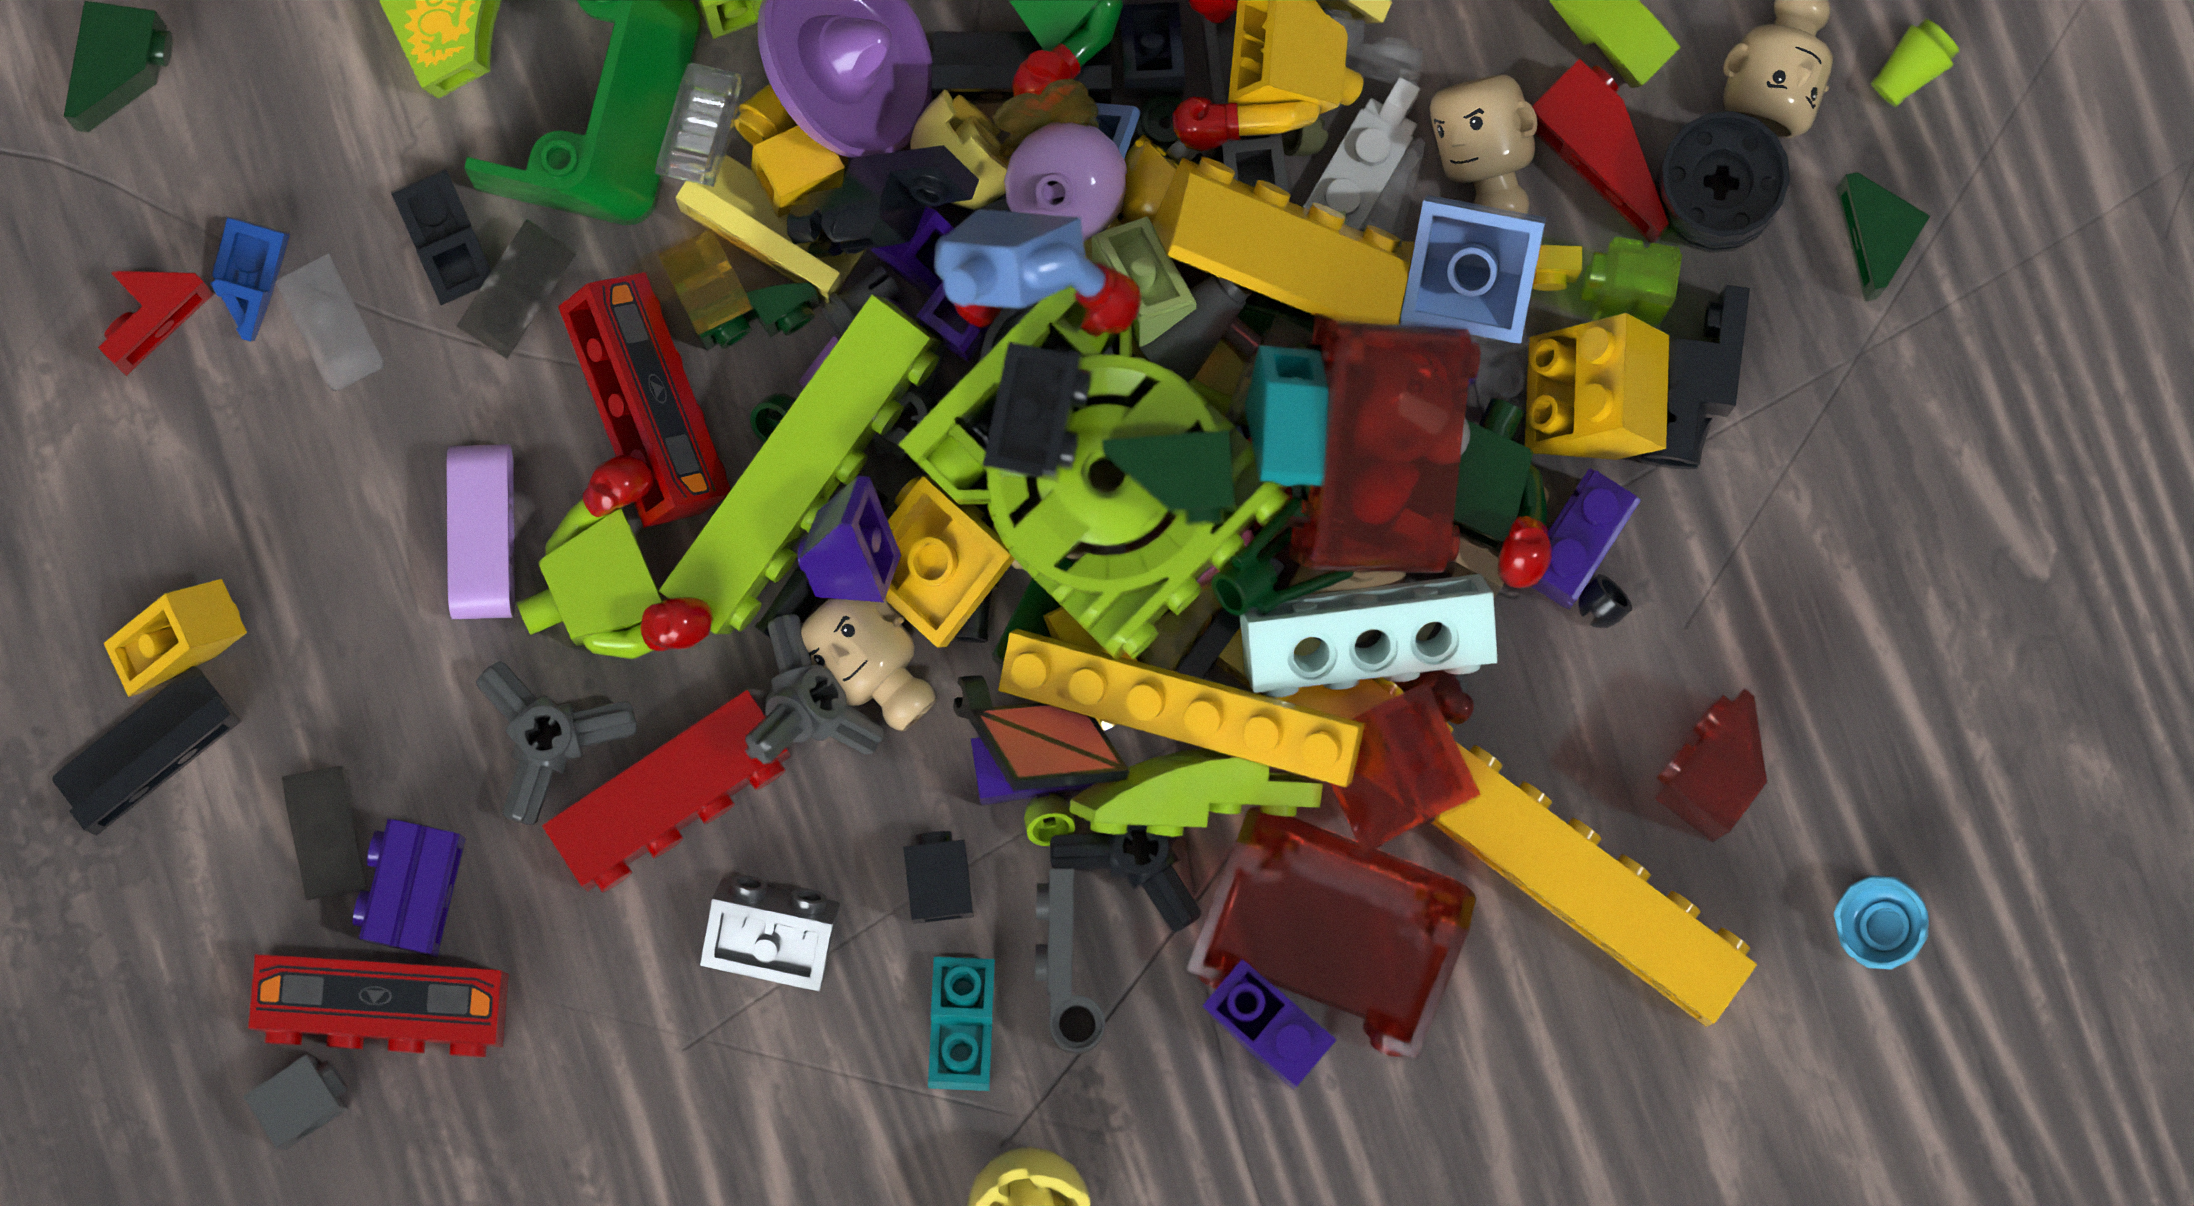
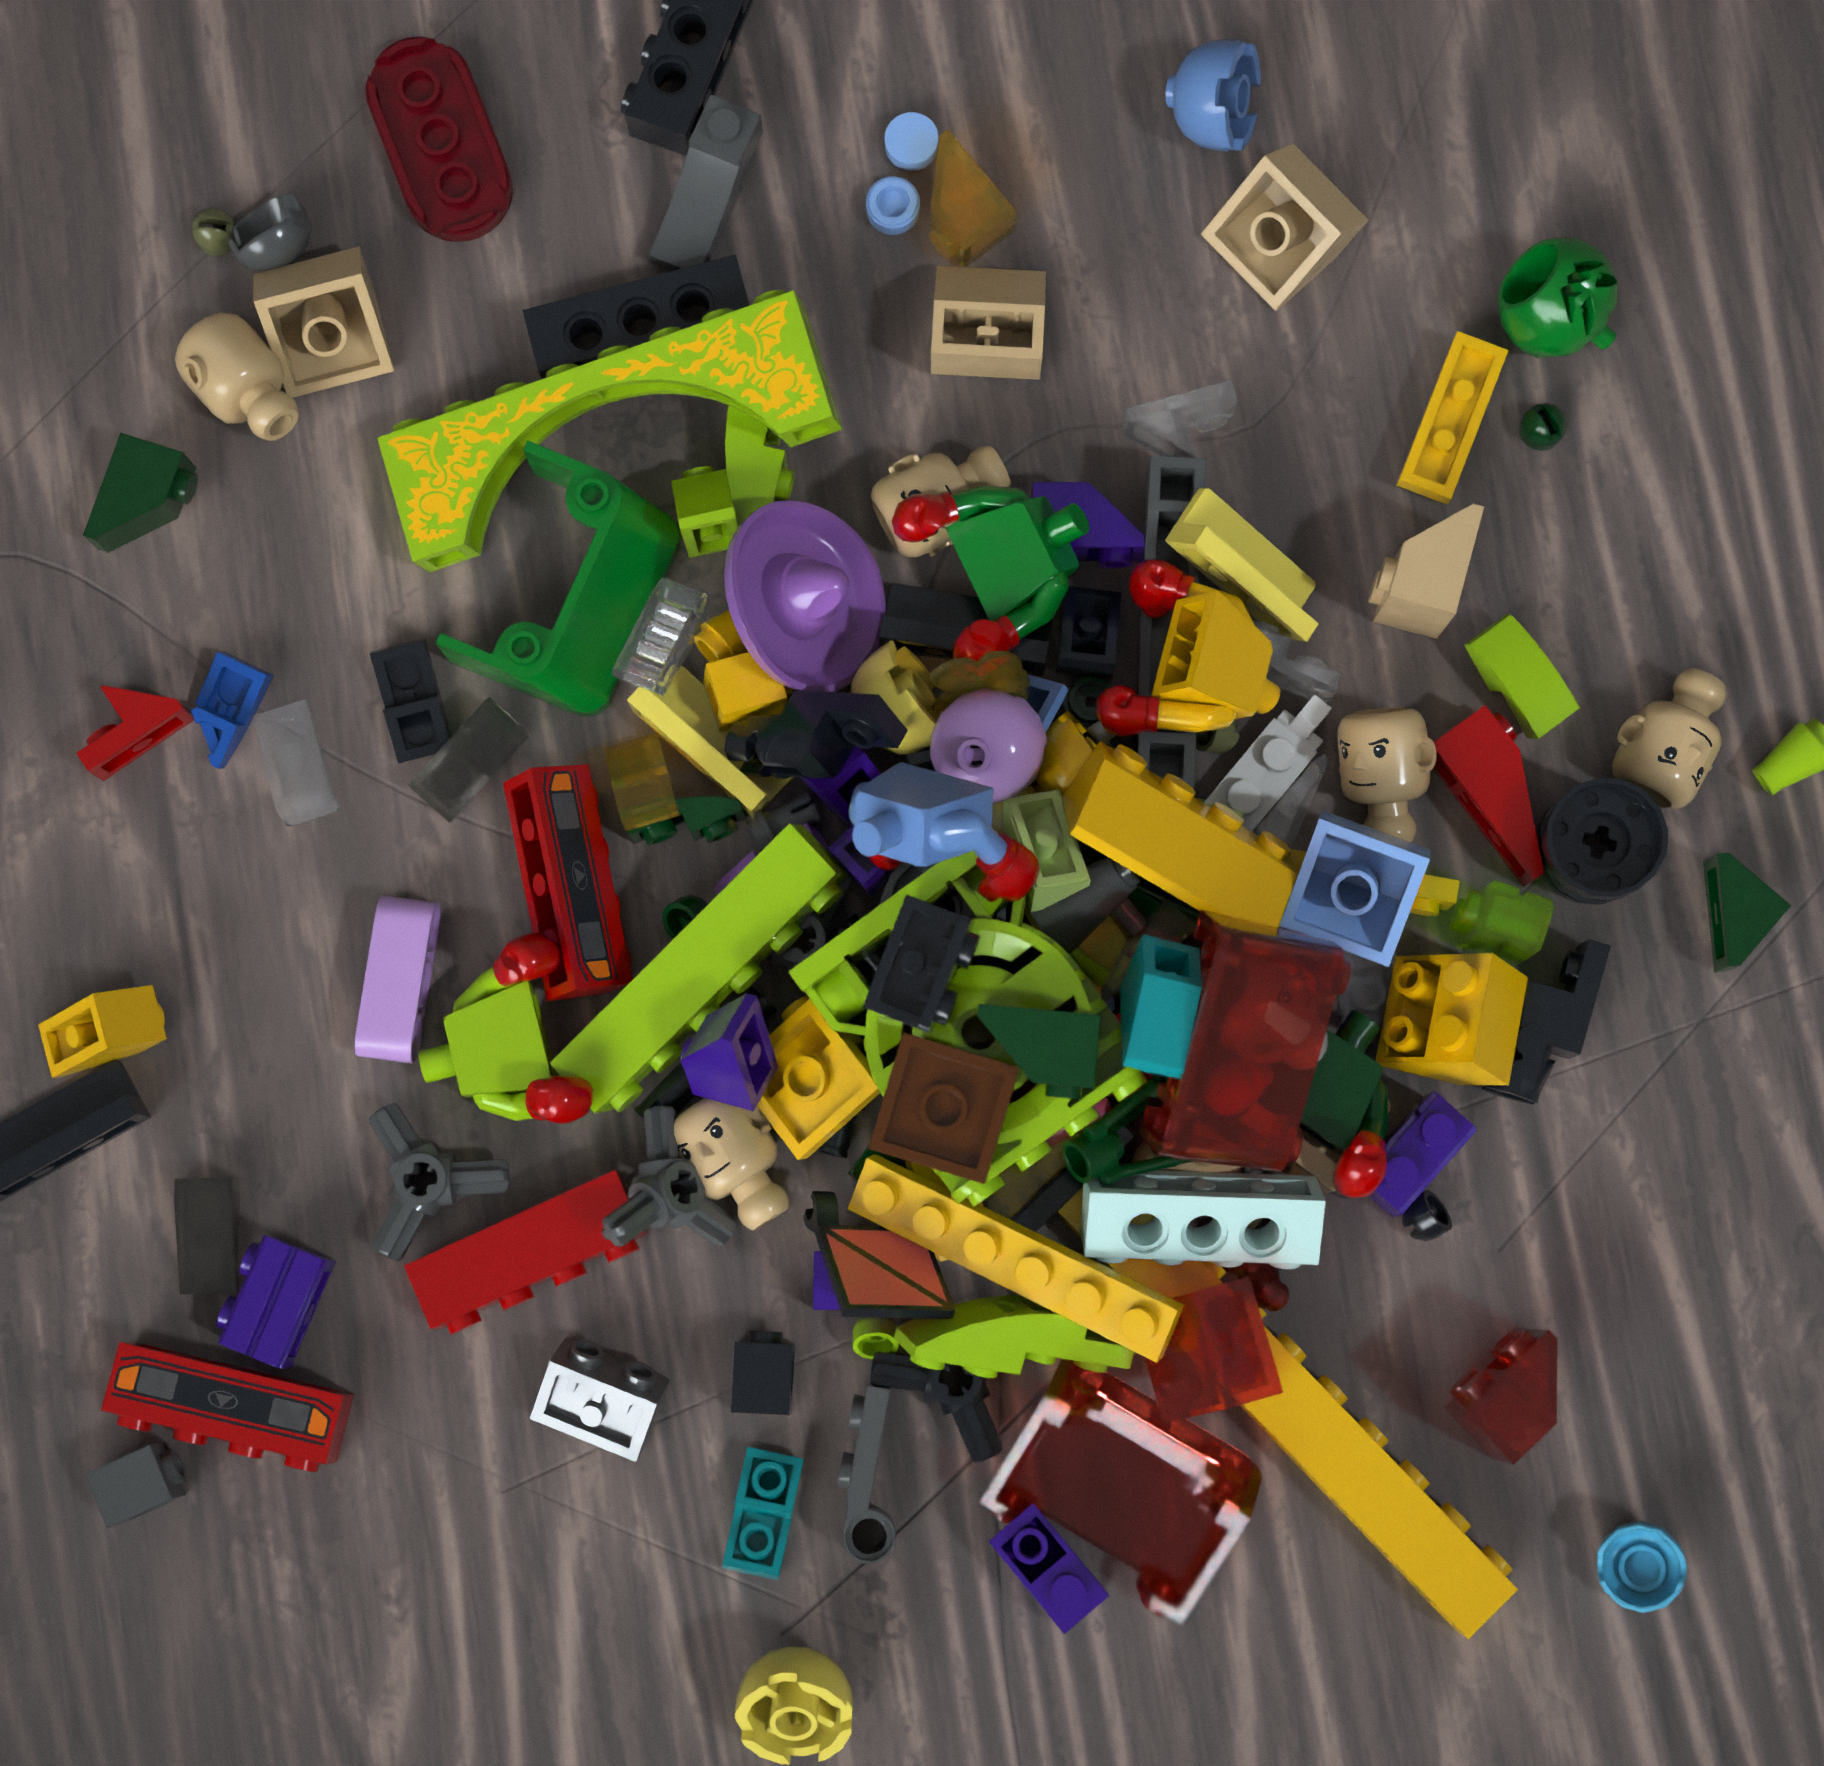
camera: 15 degrees right, 0 degrees up
(1083, 555) = (944, 1108): none -> reddish brown plate

